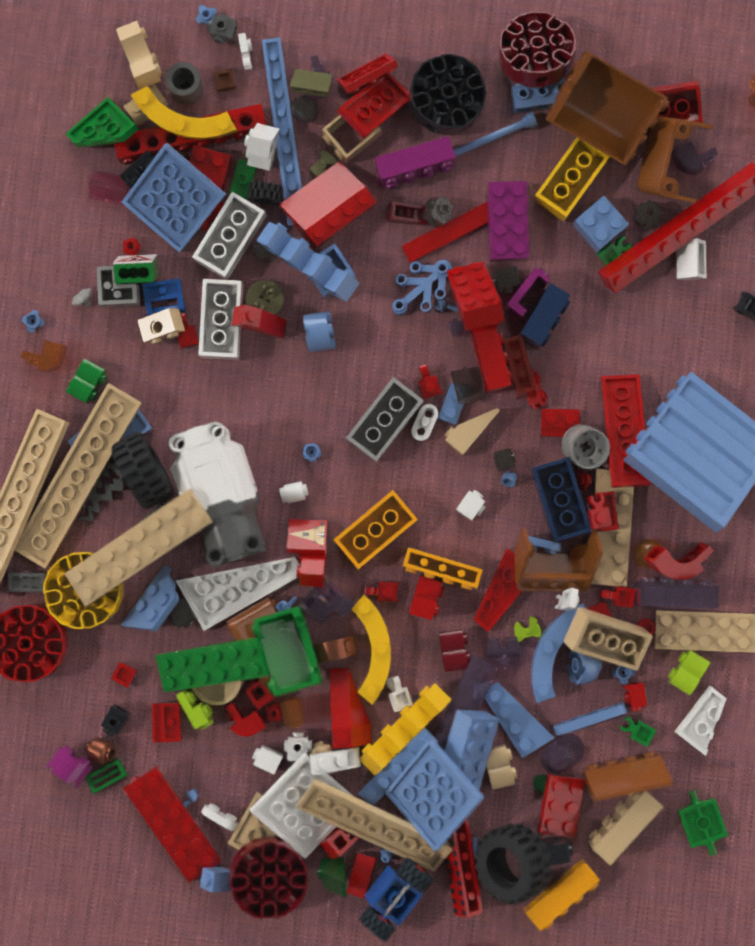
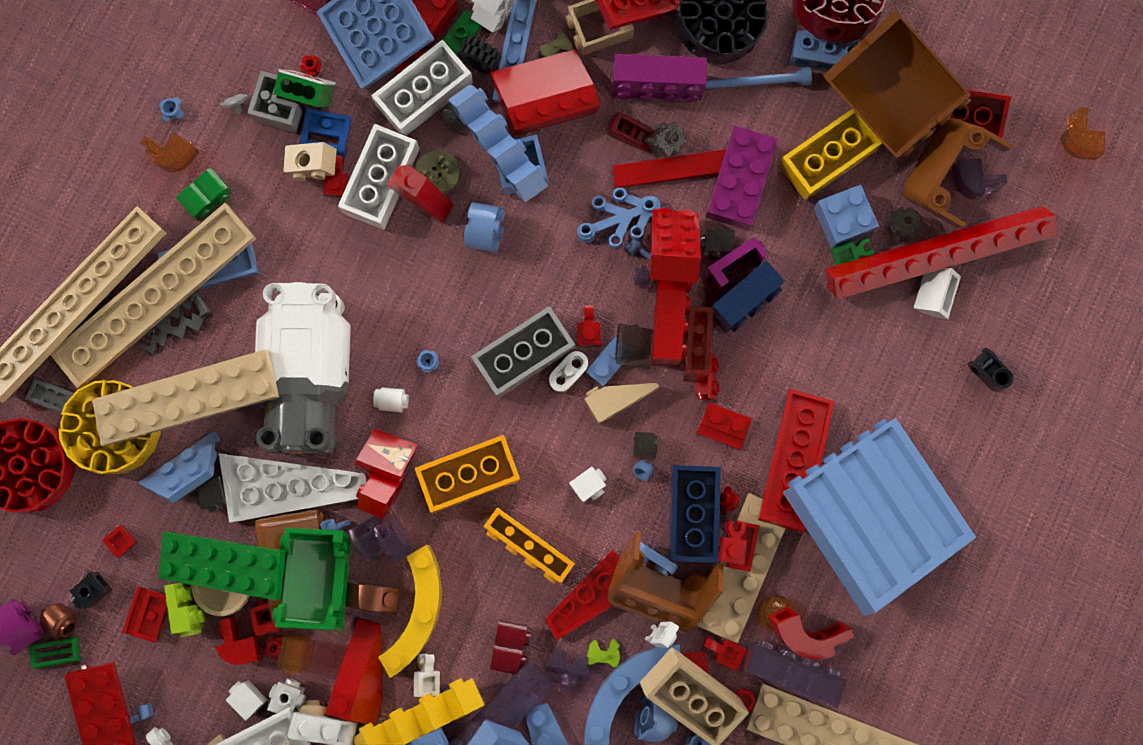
camera: 15 degrees right, 5 degrees down
(142, 470) = (224, 312): black tyre -> none
(386, 591) = (455, 551): red plate -> none
(425, 598) = (497, 574): red brick -> none
(595, 449) = (755, 468): light grey wheel -> none

